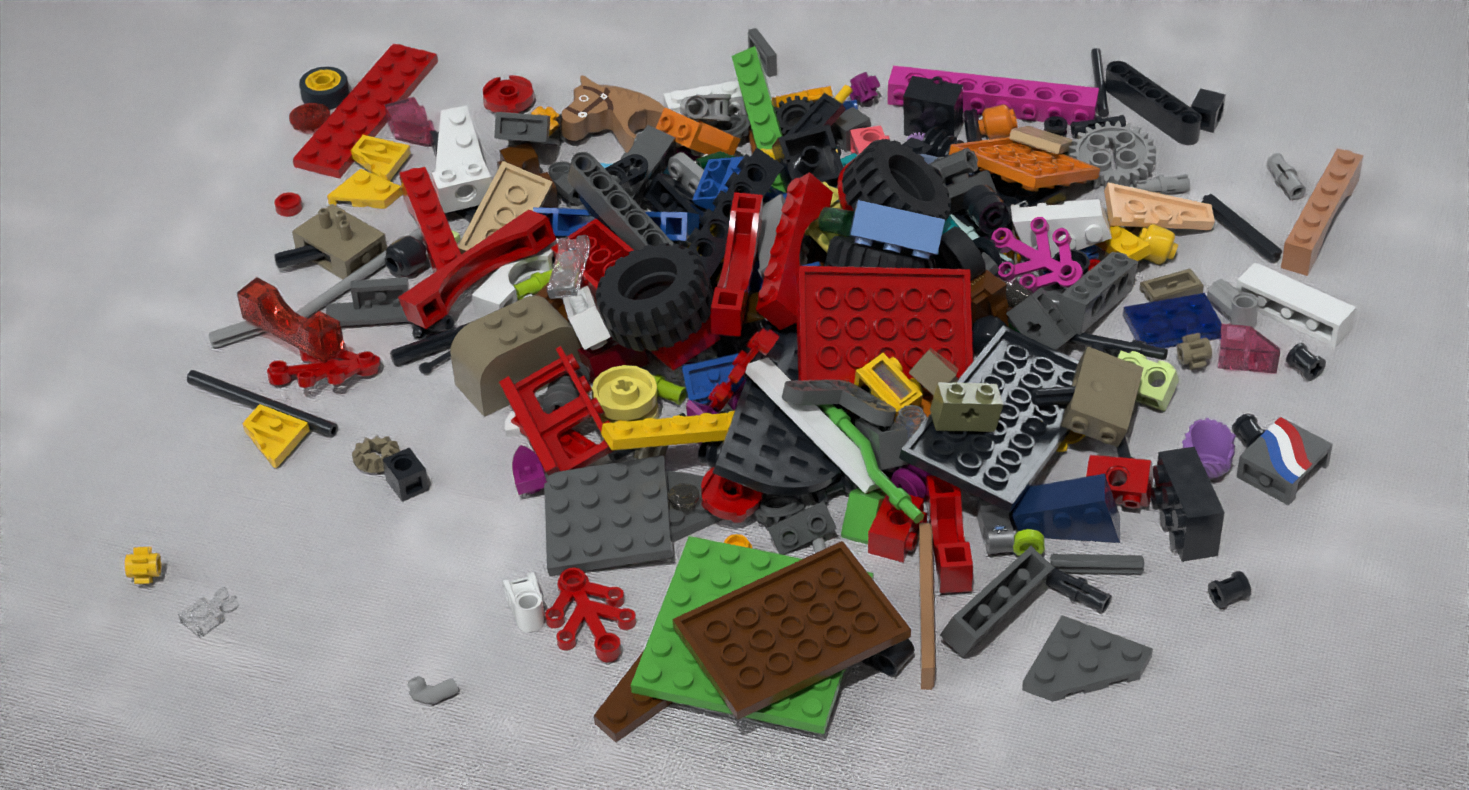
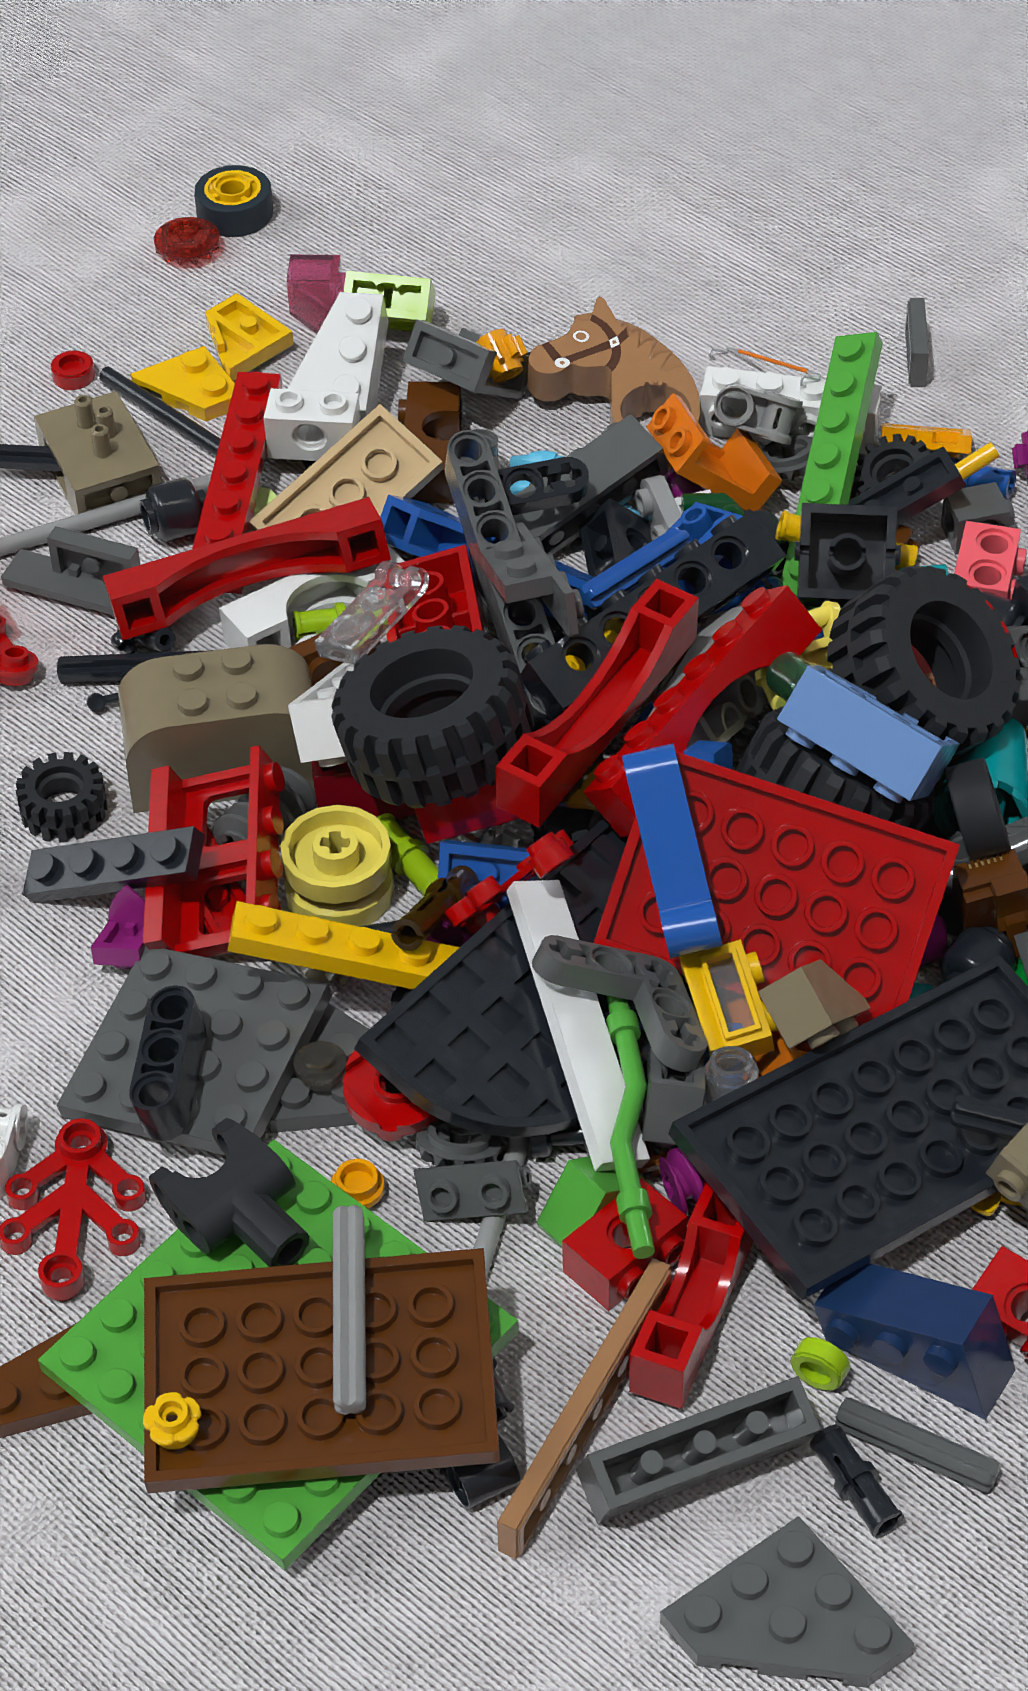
camera: 25 degrees right, 5 degrees up
(361, 210) = (160, 409): none -> black bar
(364, 110) = (258, 258): red plate -> none
(442, 431) = (59, 777): none -> black tyre
(473, 101) = (404, 296): none -> brick
(504, 438) = (113, 863): none -> black plate
(508, 95) = (507, 297): red plate -> none
(607, 519) = (168, 1063): none -> black beam
(659, 215) = (525, 572): none -> dark grey bracket
(693, 82) = (797, 368): none -> piece
(693, 567) = (236, 1199): none -> black connector
(704, 198) = (627, 571): none -> blue axle
(706, 391) = (429, 911): none -> dark brown pin
(738, 682) = (175, 1433): none -> yellow plate
(794, 591) = (349, 1310): none -> light grey axle
(830, 319) = (672, 851): none -> blue beam
(966, 407) = (822, 1087): olive brick -> none
(995, 528) = (781, 1320): flat silver leg -> none

